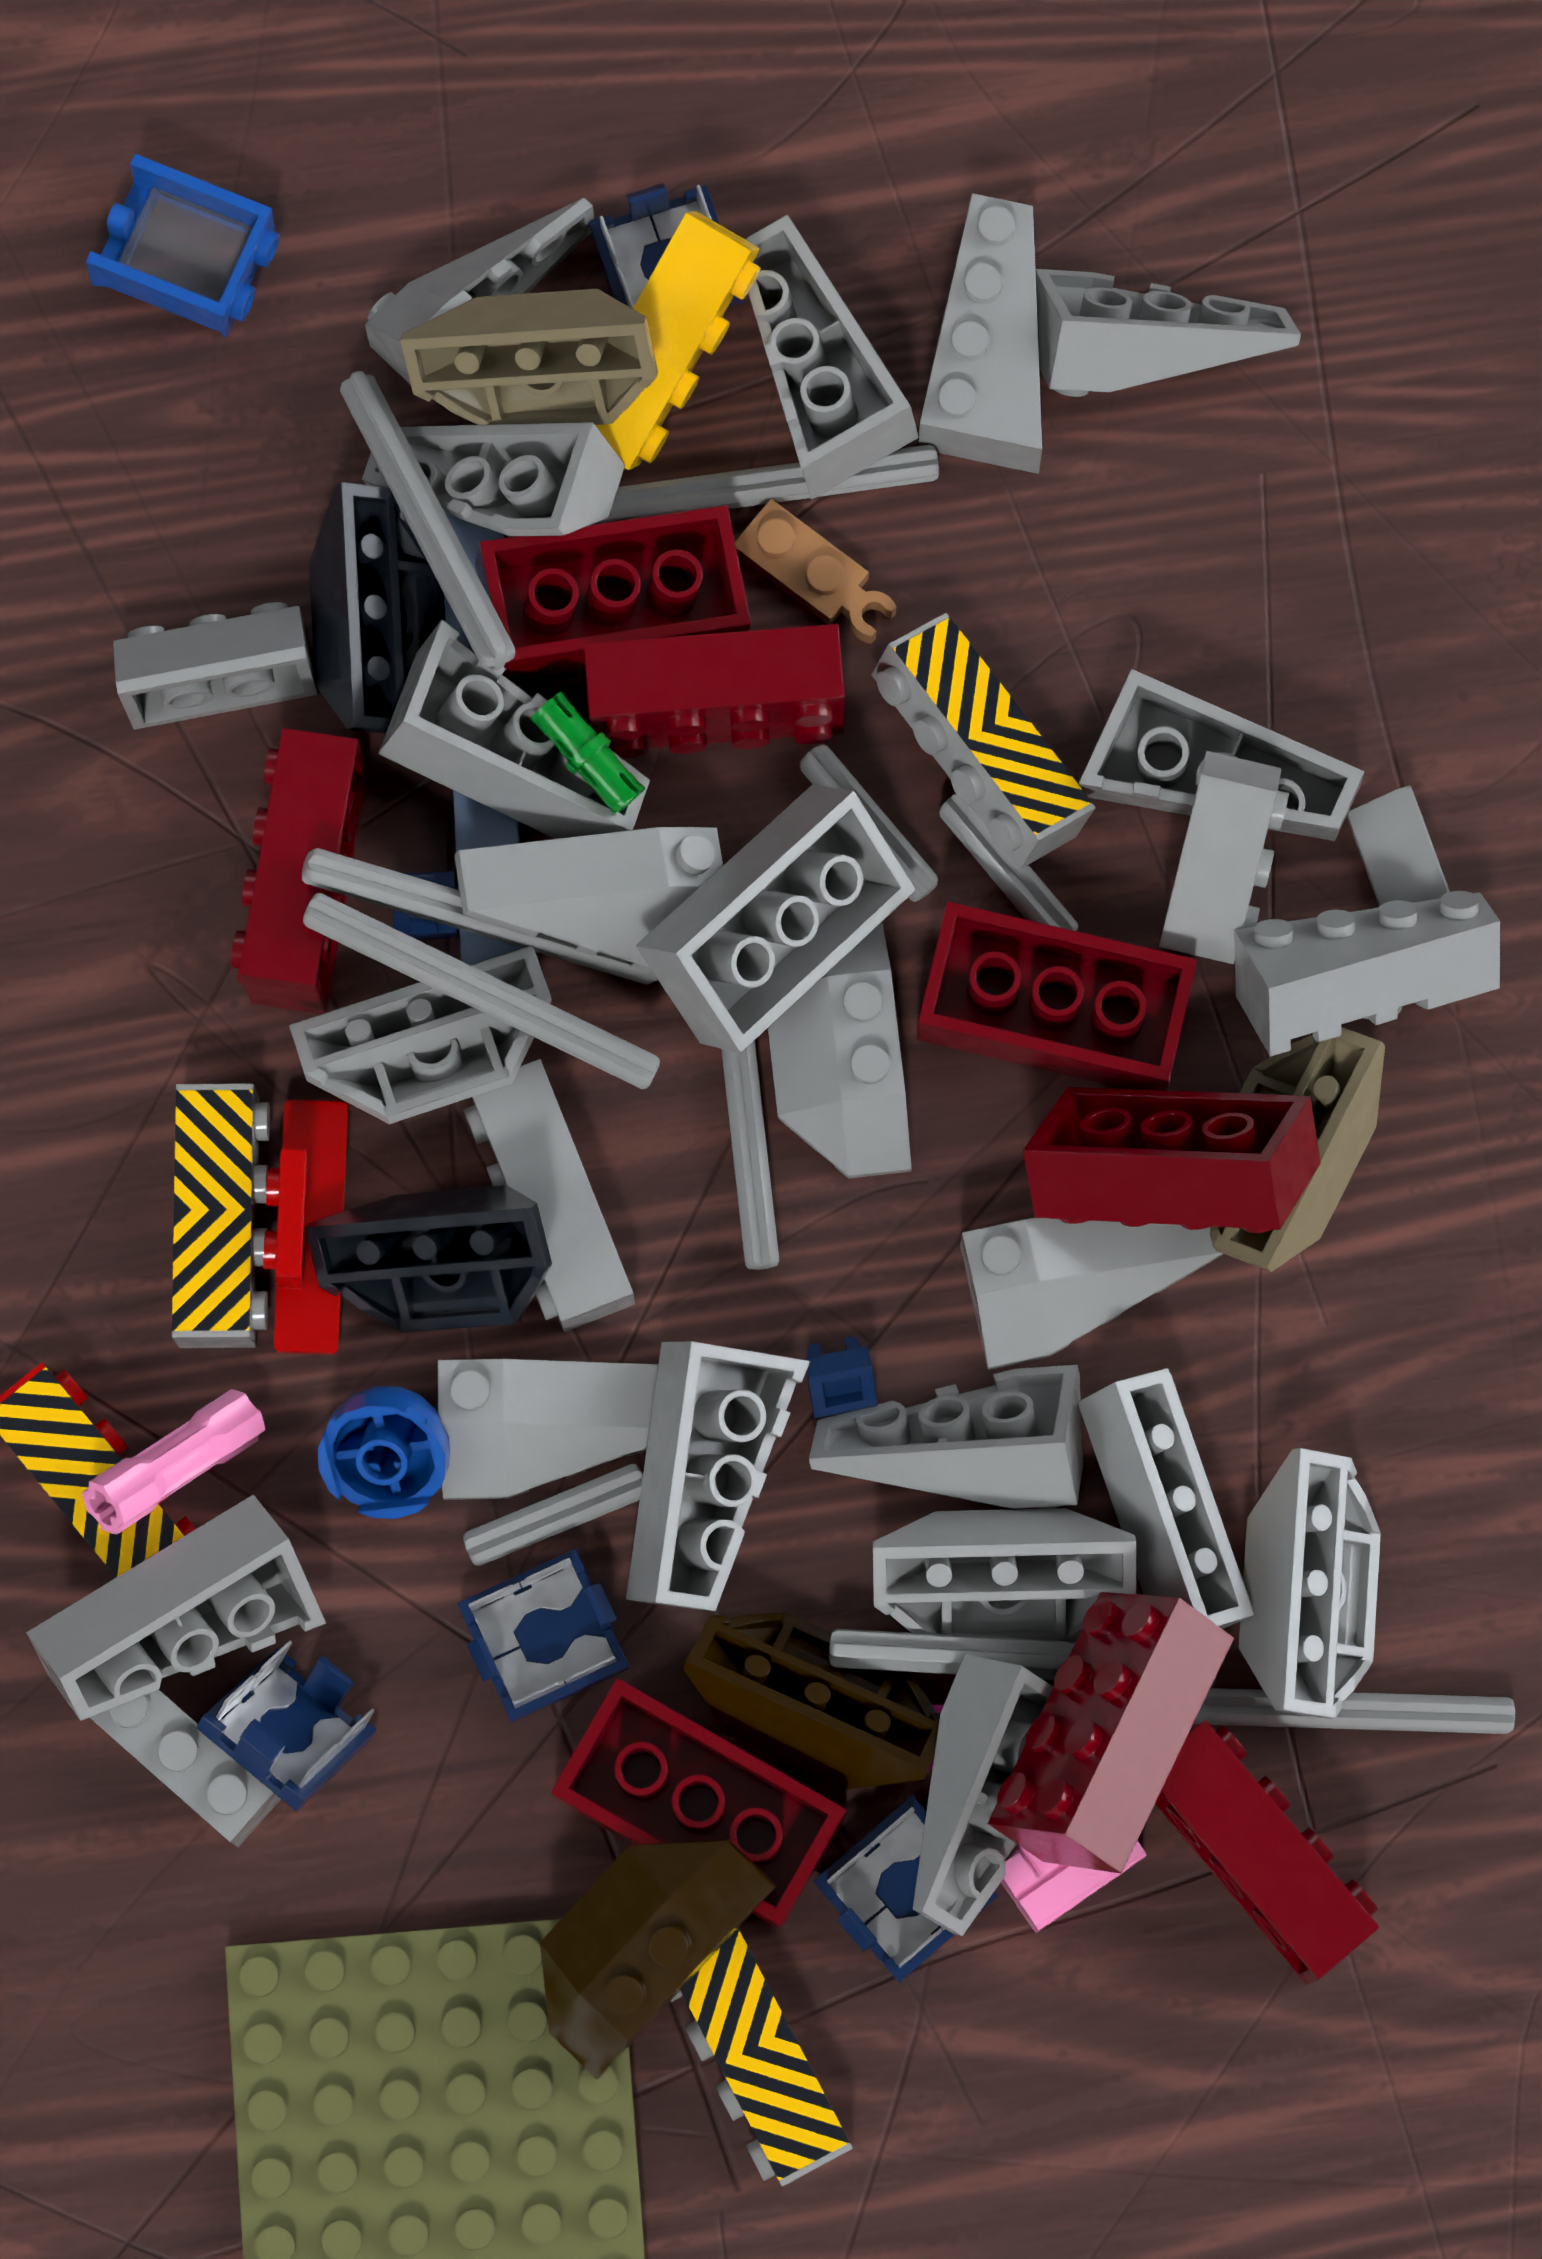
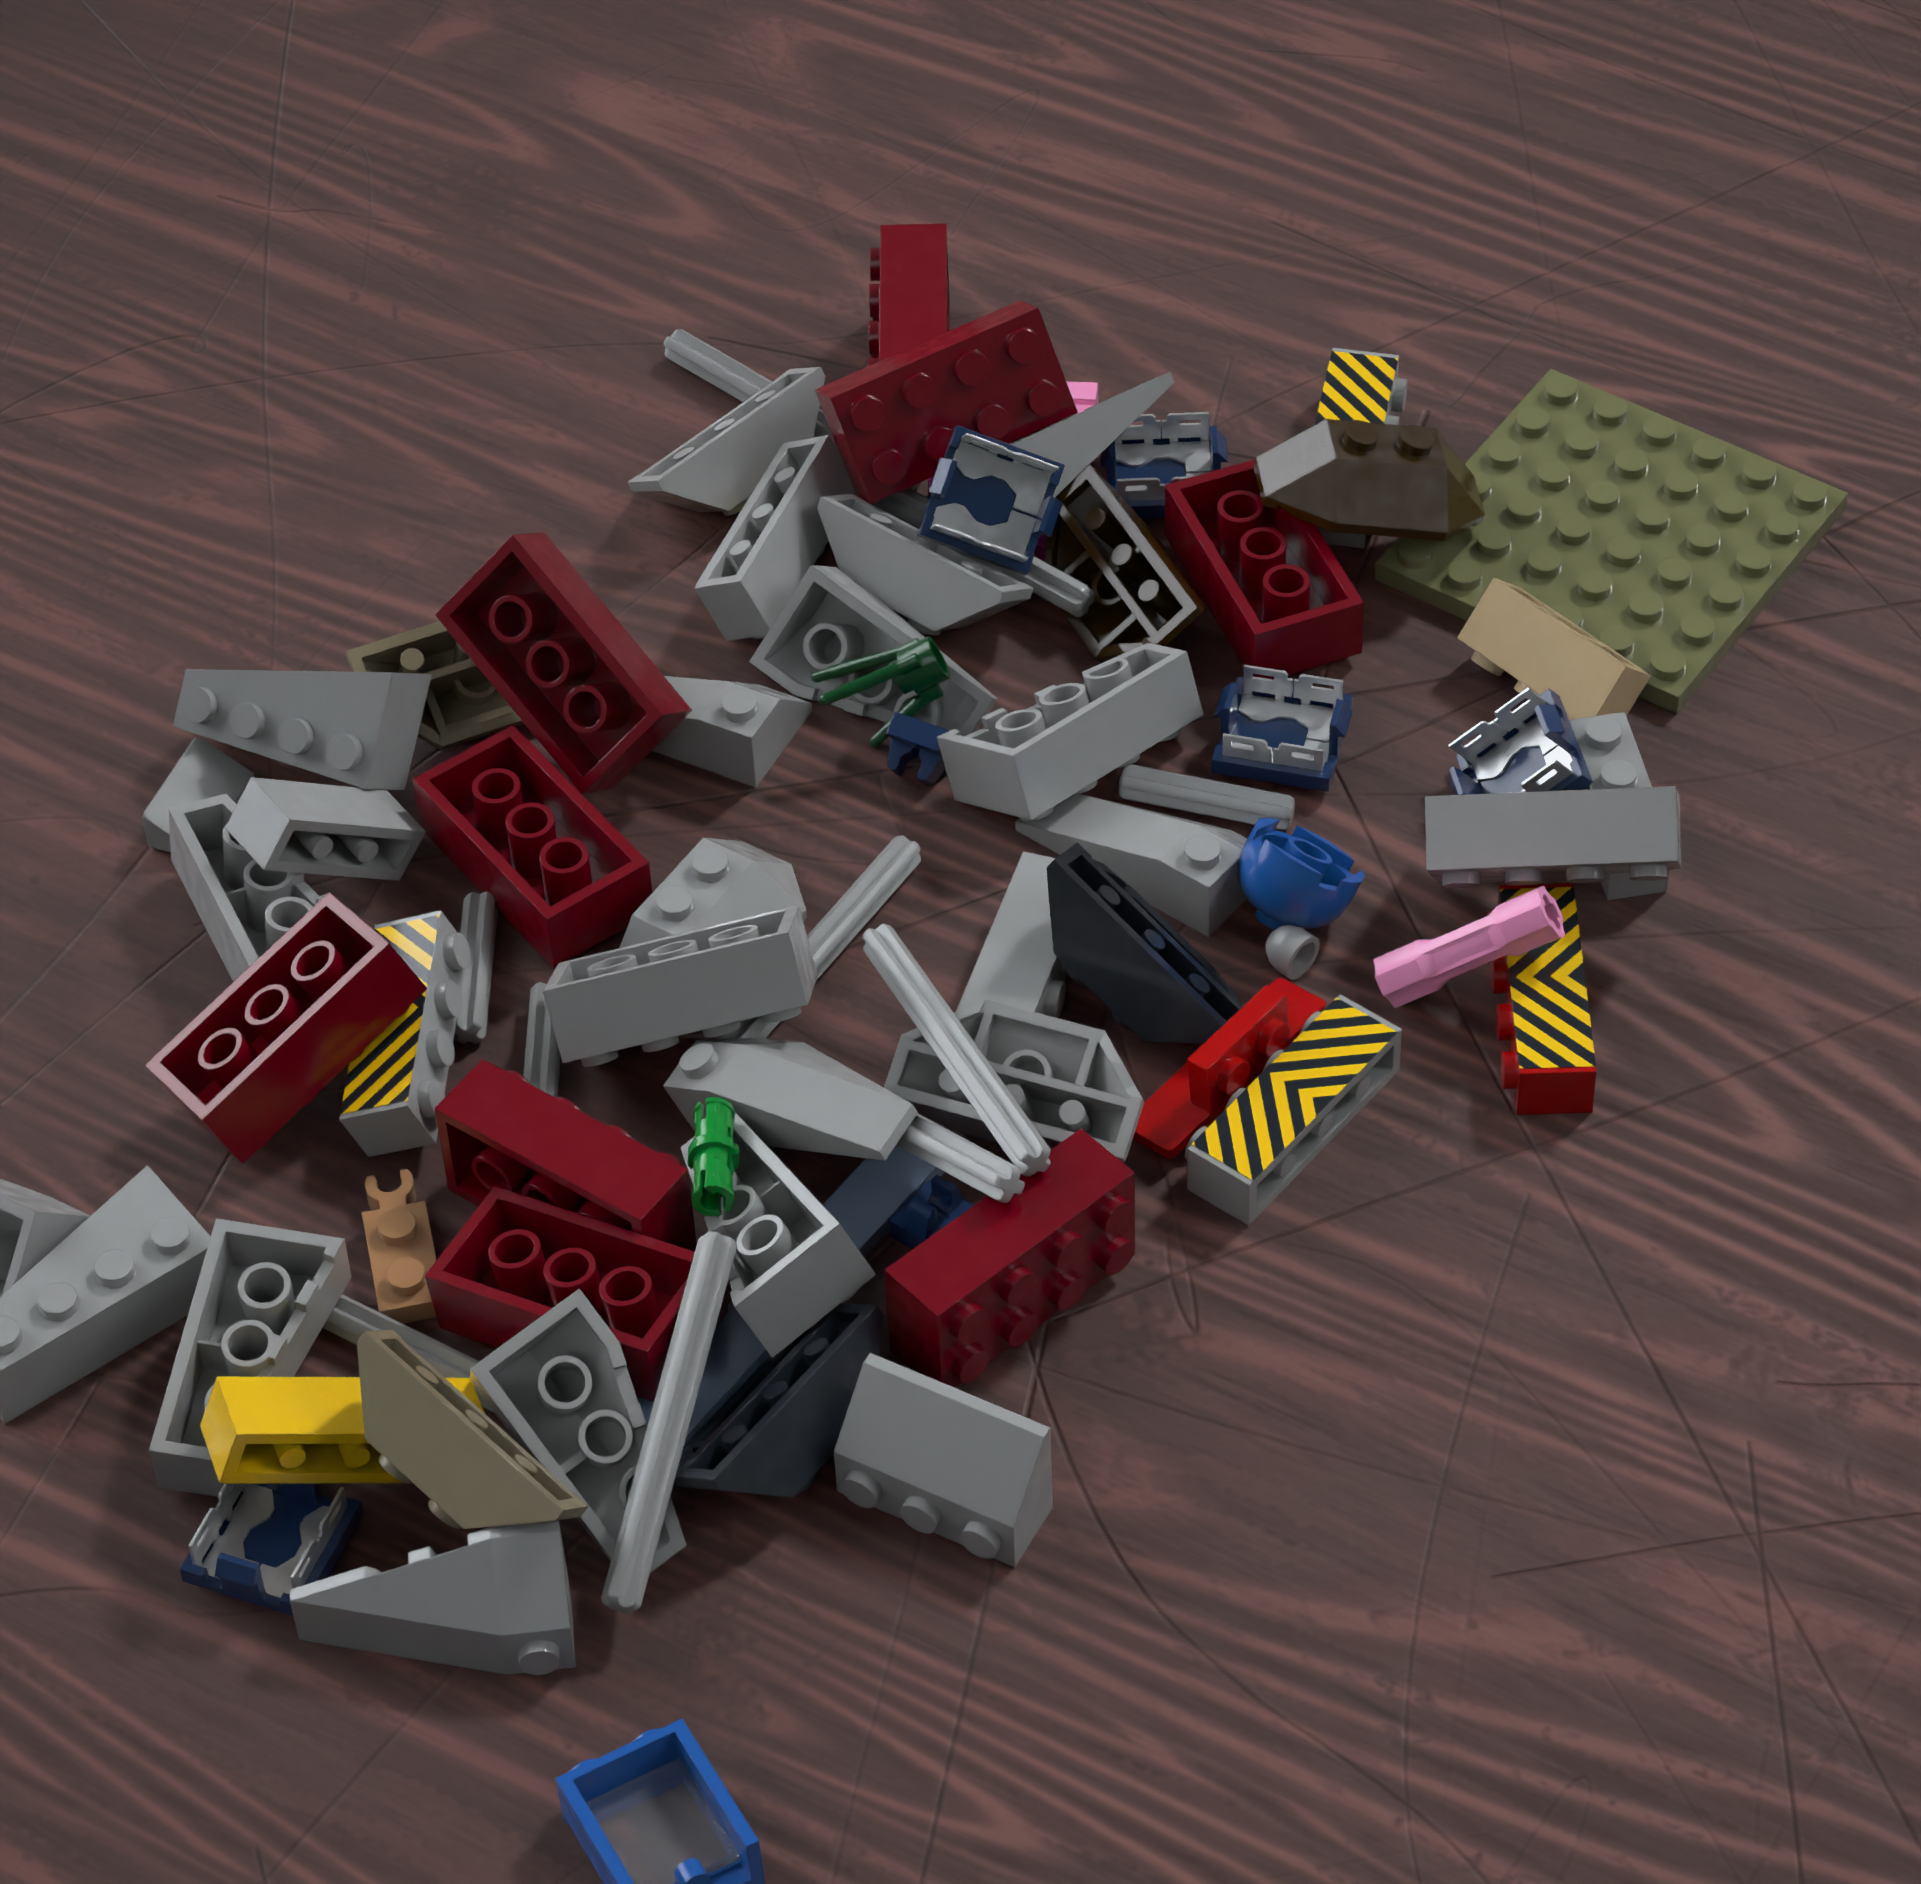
camera: 140 degrees left, 30 degrees down
(346, 1380) = (1291, 950): none -> light grey hinge
(356, 1891) = (1549, 651): none -> tan brick
(891, 1414) = (913, 666): none -> dark green plant
(967, 1642) = (992, 500): none -> piece
(1052, 640) = (286, 1027): none -> dark red brick

